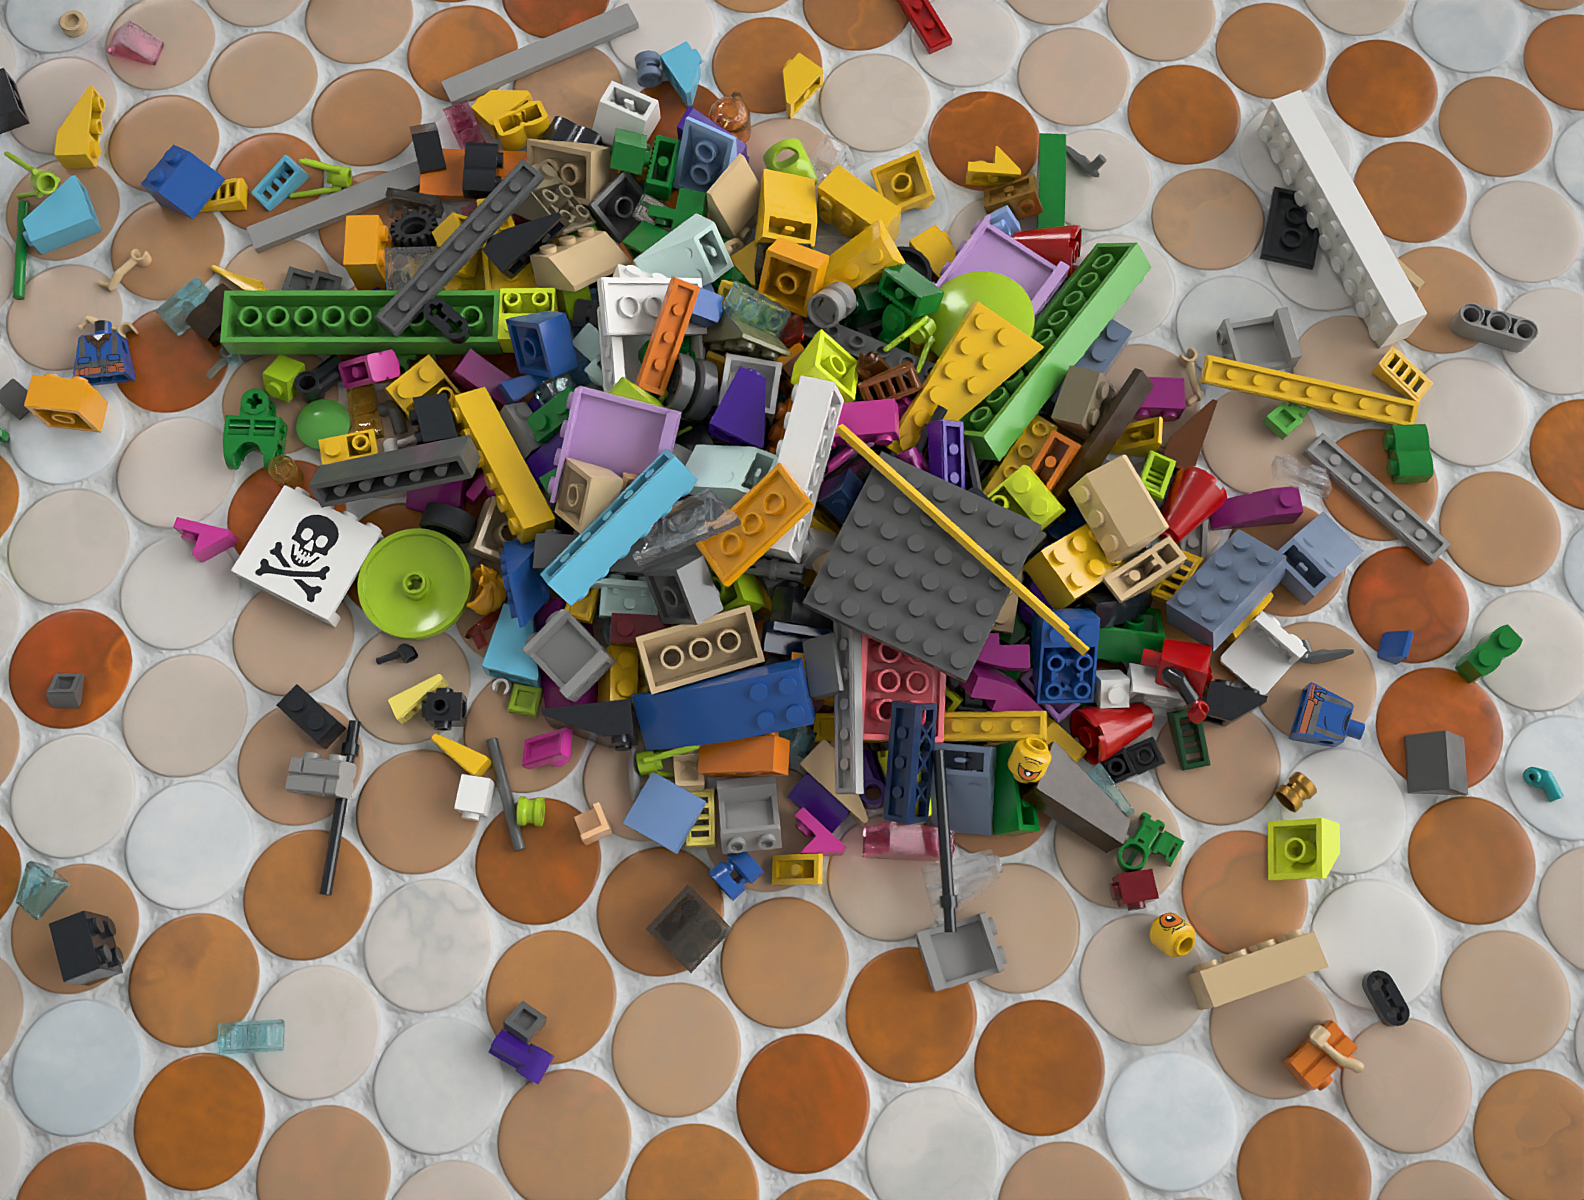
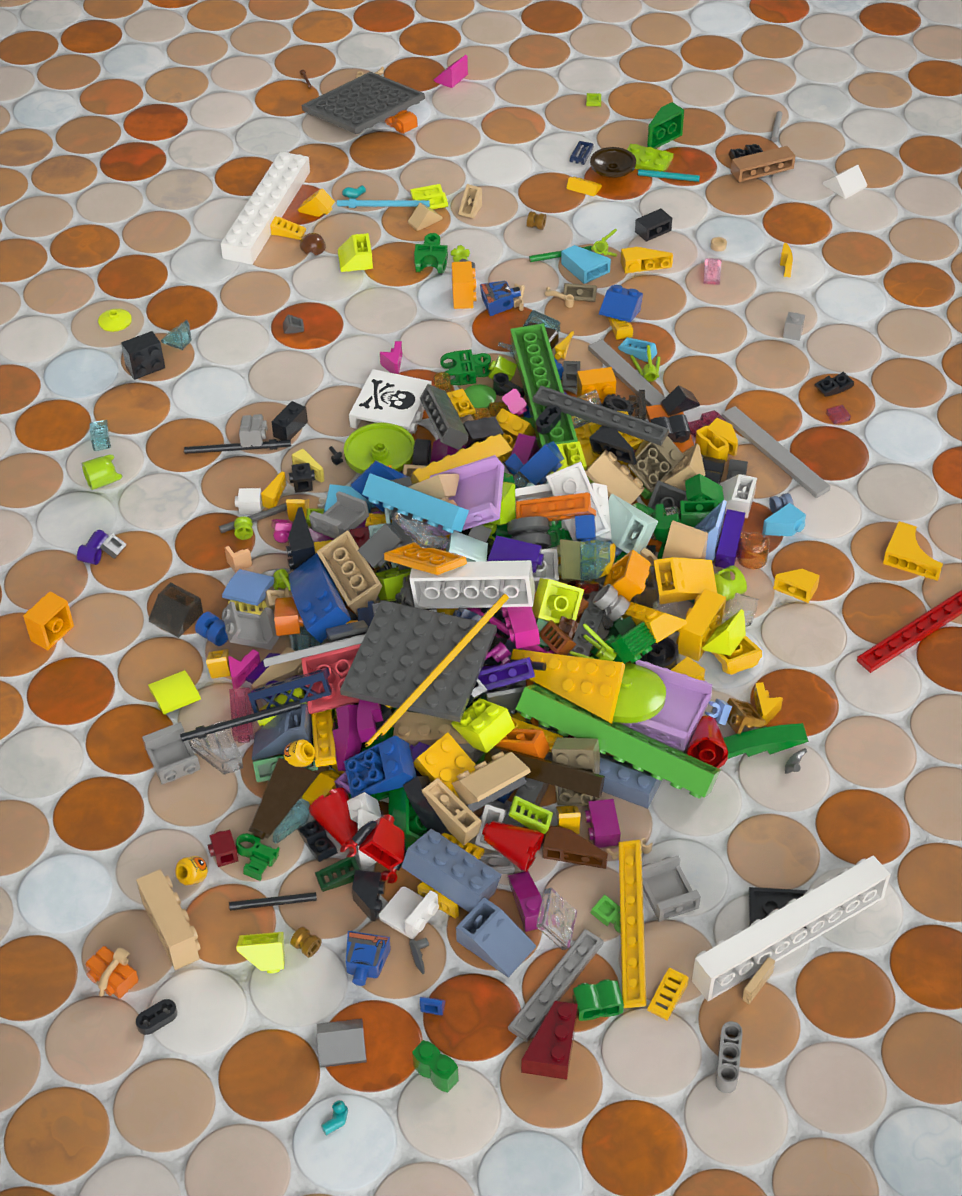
camera: 80 degrees right, 25 degrees down
(125, 238) = (581, 292): none -> dark tan slope
(355, 1036) = (100, 471): none -> lime piece
(502, 722) = (294, 504): none -> yellow slope
(566, 105) = (737, 467): none -> dark grey slope
(677, 1132) = (48, 620): none -> light orange brick
(842, 941) = (174, 692): none -> neon yellow slope
(888, 179) = (727, 635): none -> neon yellow slope
(1220, 831) = (272, 901): none -> black bar
(1465, 511) = (553, 1043): none -> dark red wedge

